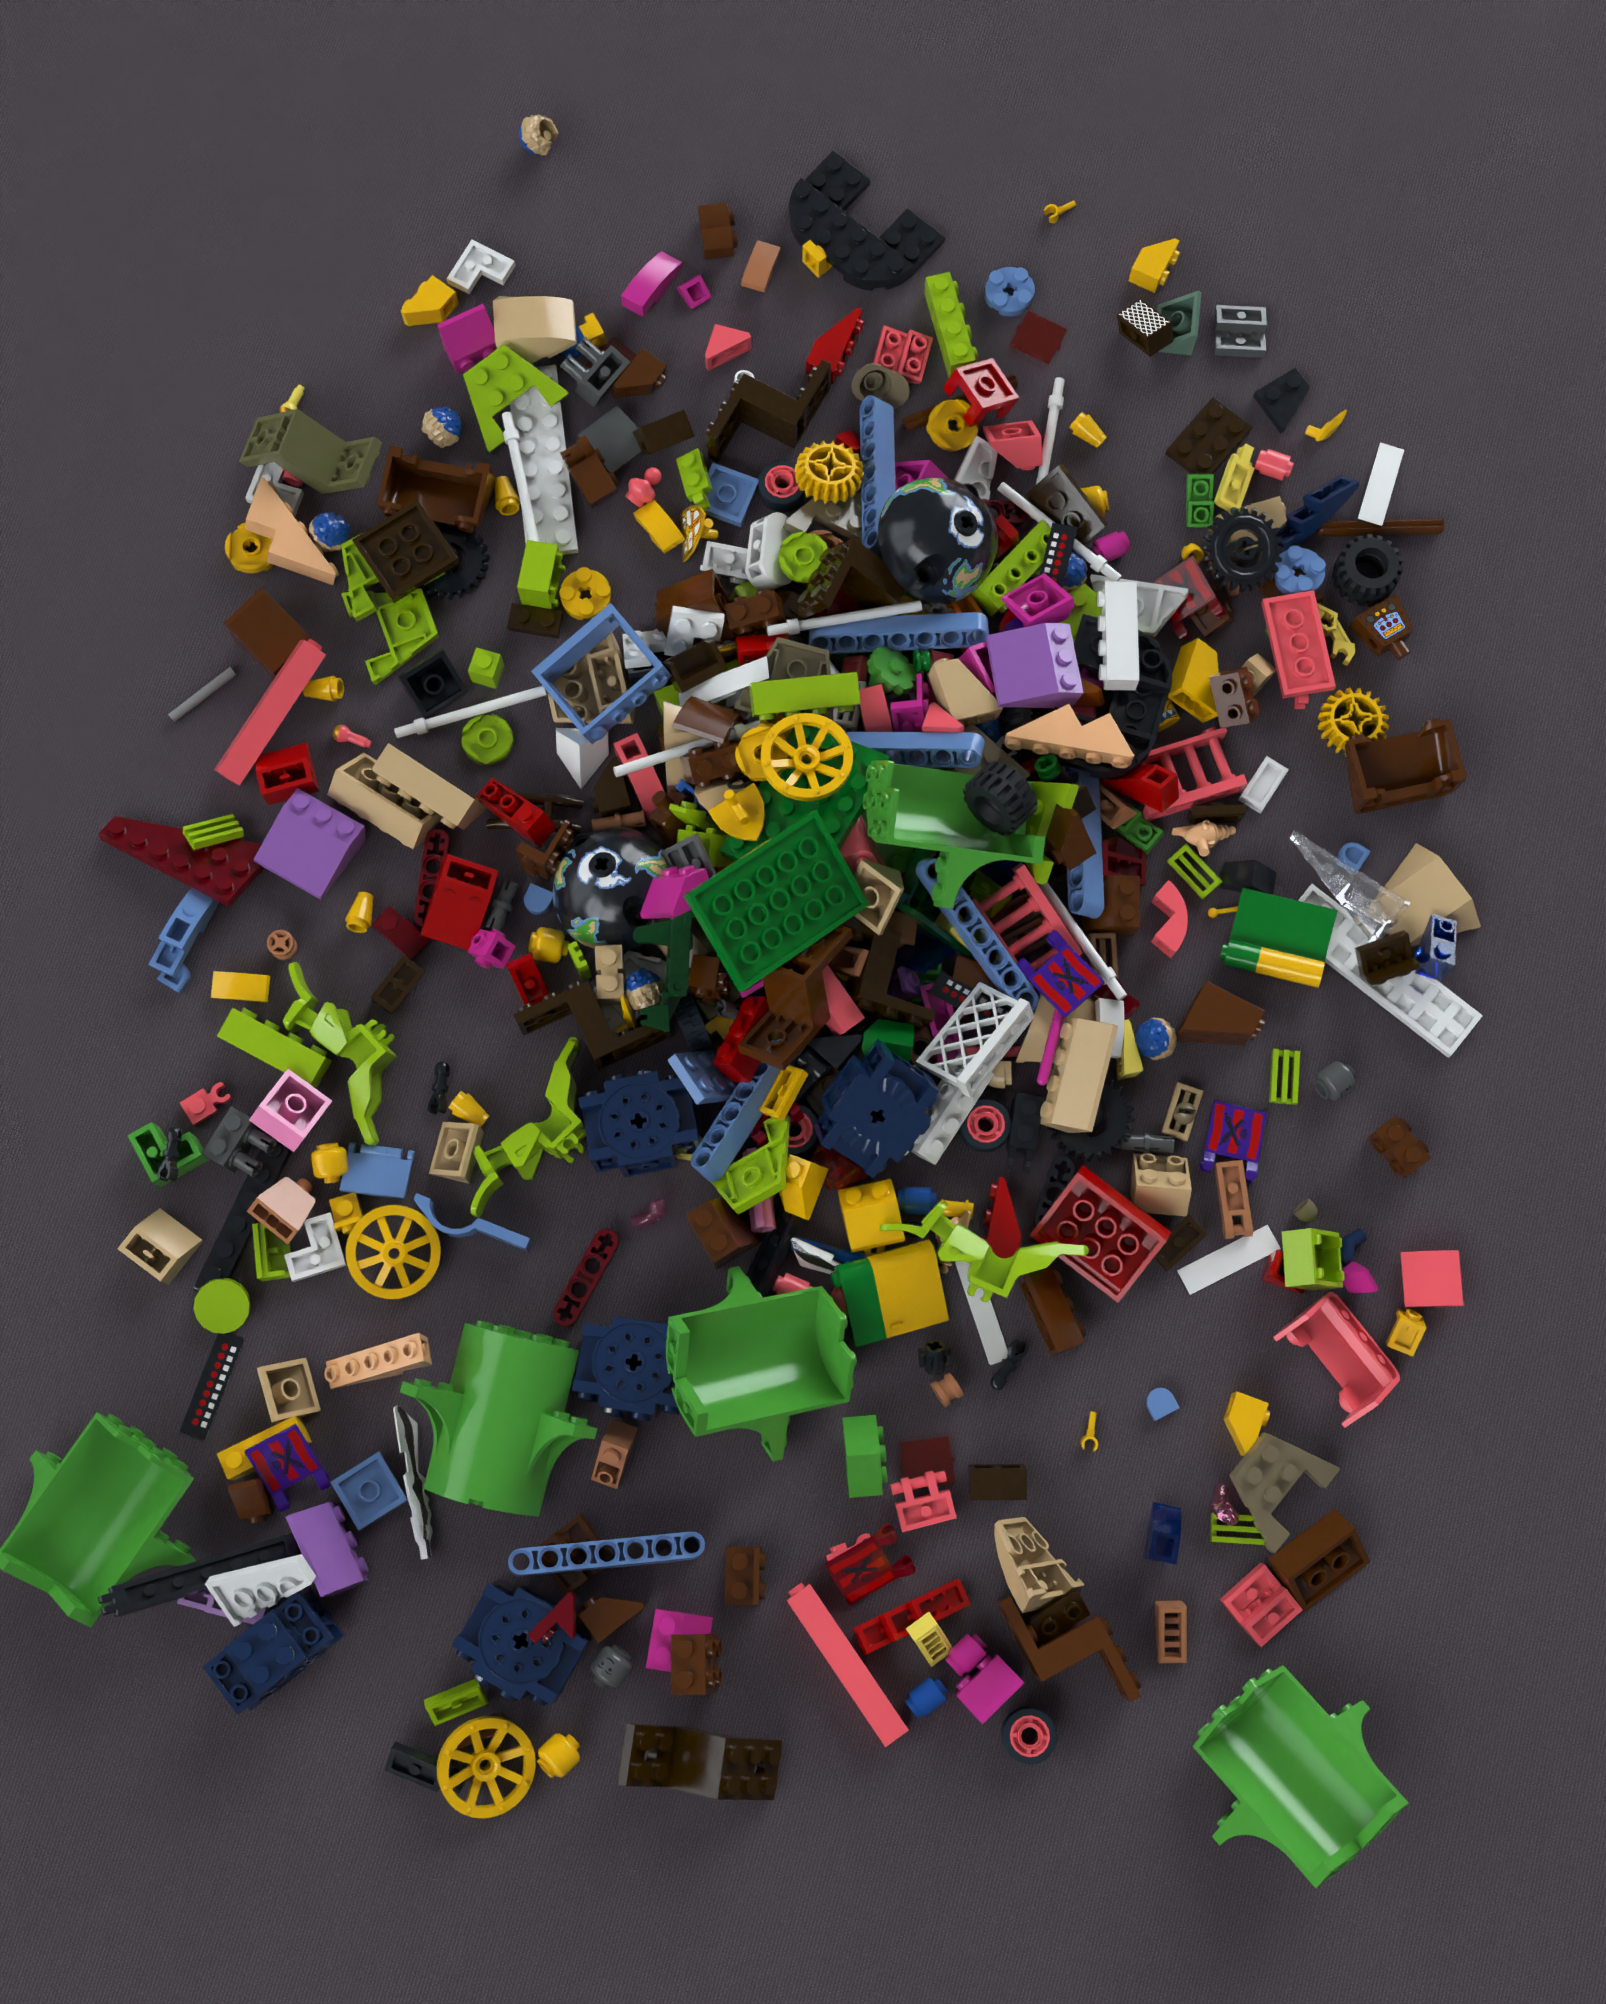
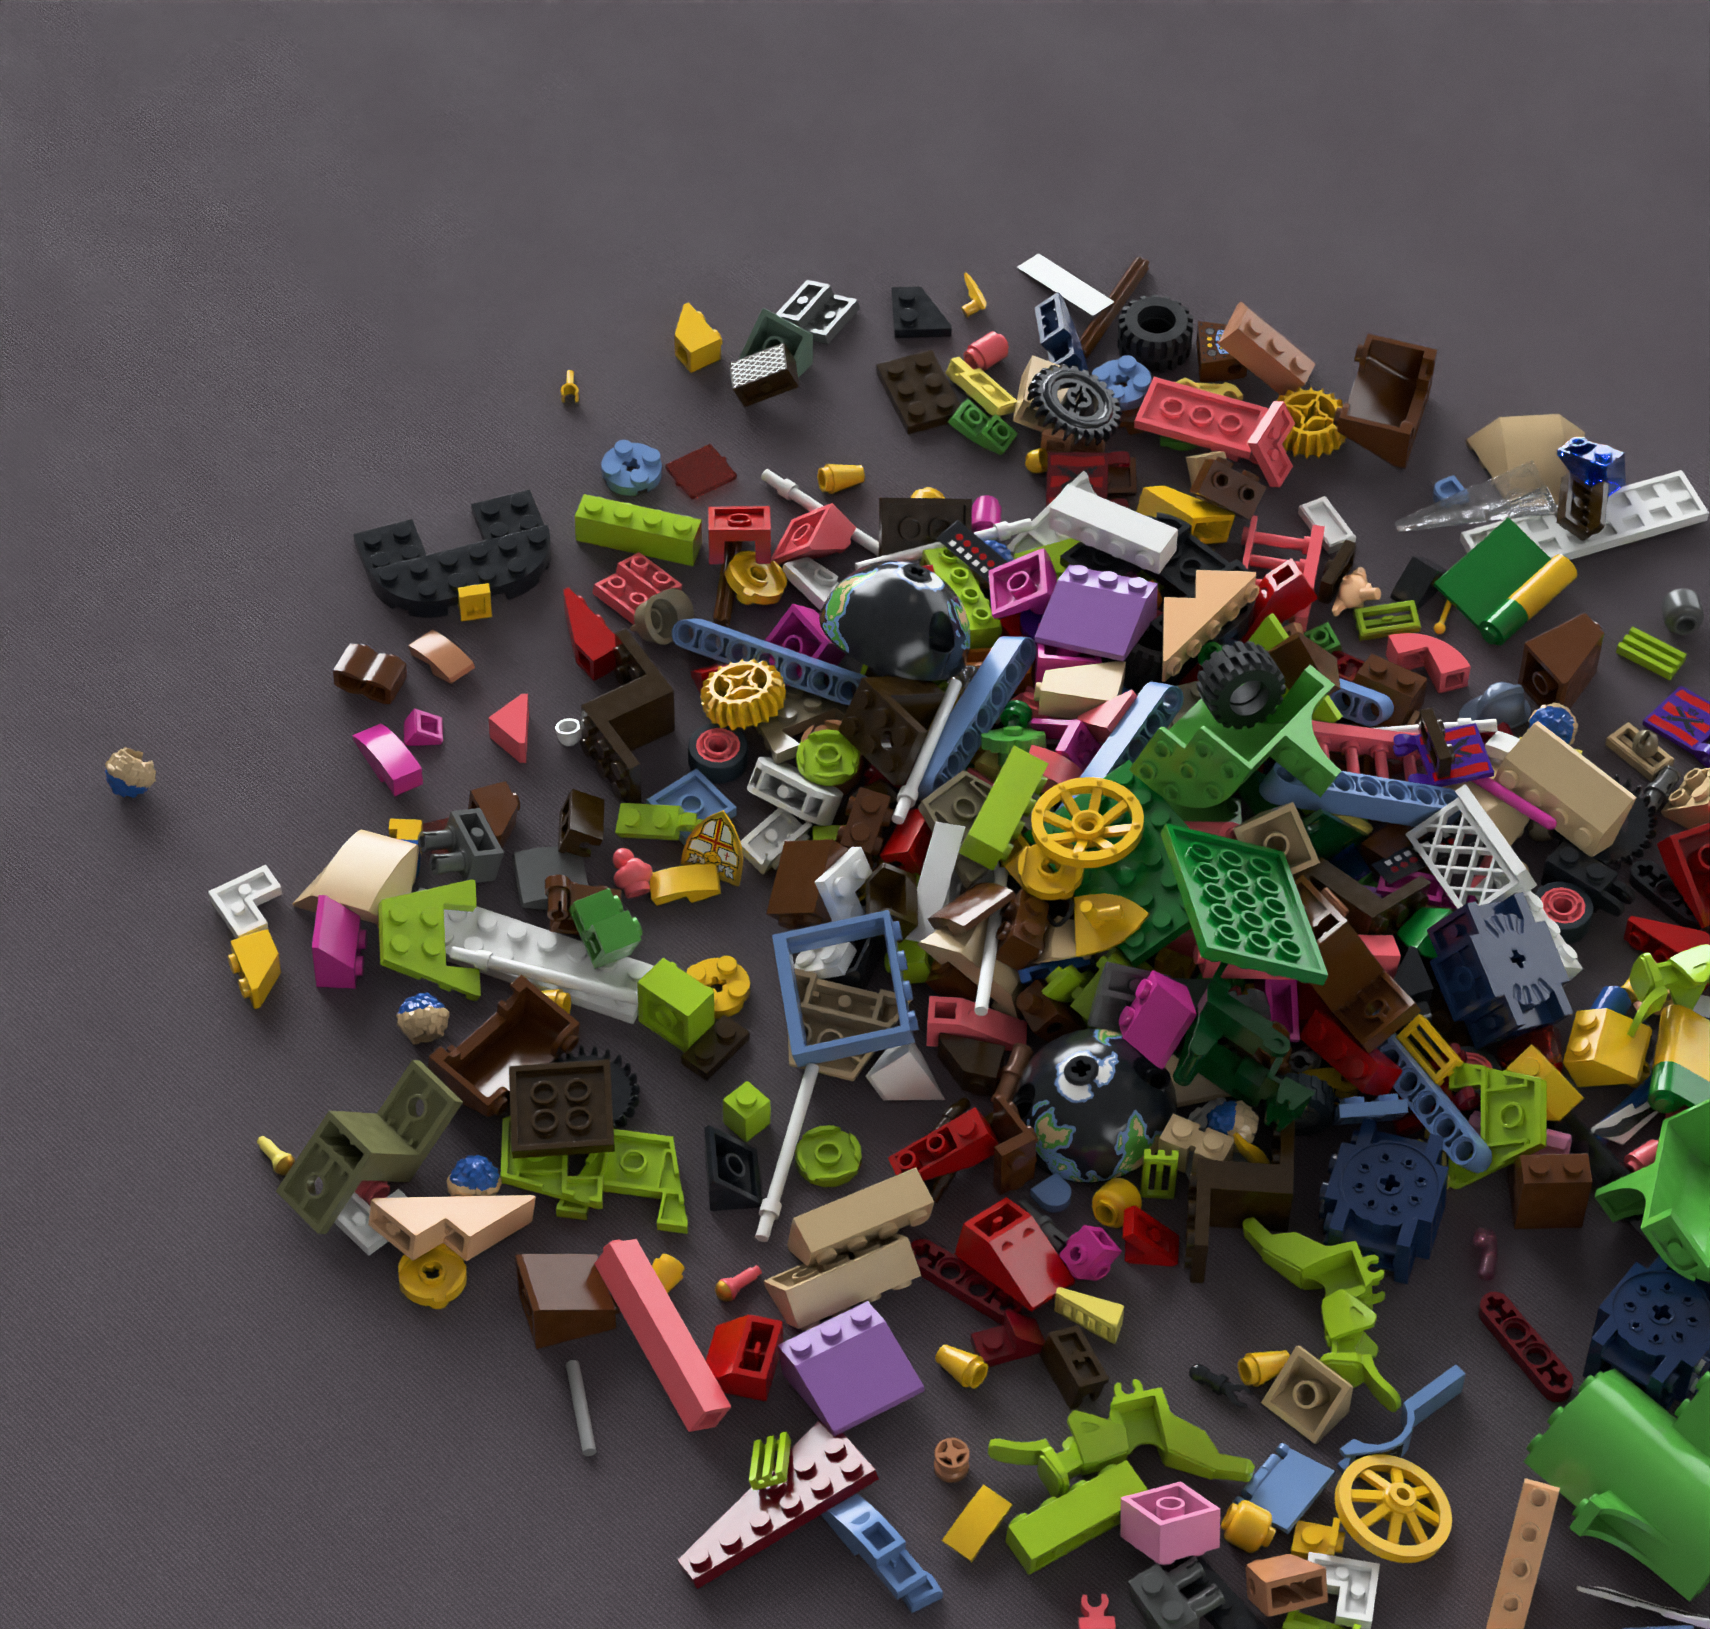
camera: 60 degrees left, 25 degrees down
(447, 981) = (1091, 1313): none -> light yellow slope
(566, 496) = (605, 927): none -> bright green brick
(1053, 969) = (1433, 734): none -> dark brown plate
(1155, 990) = (1499, 702): none -> sand blue piece
(1300, 701) = (1267, 443): none -> coral plate
(1399, 655) = (1265, 351): none -> nougat slope

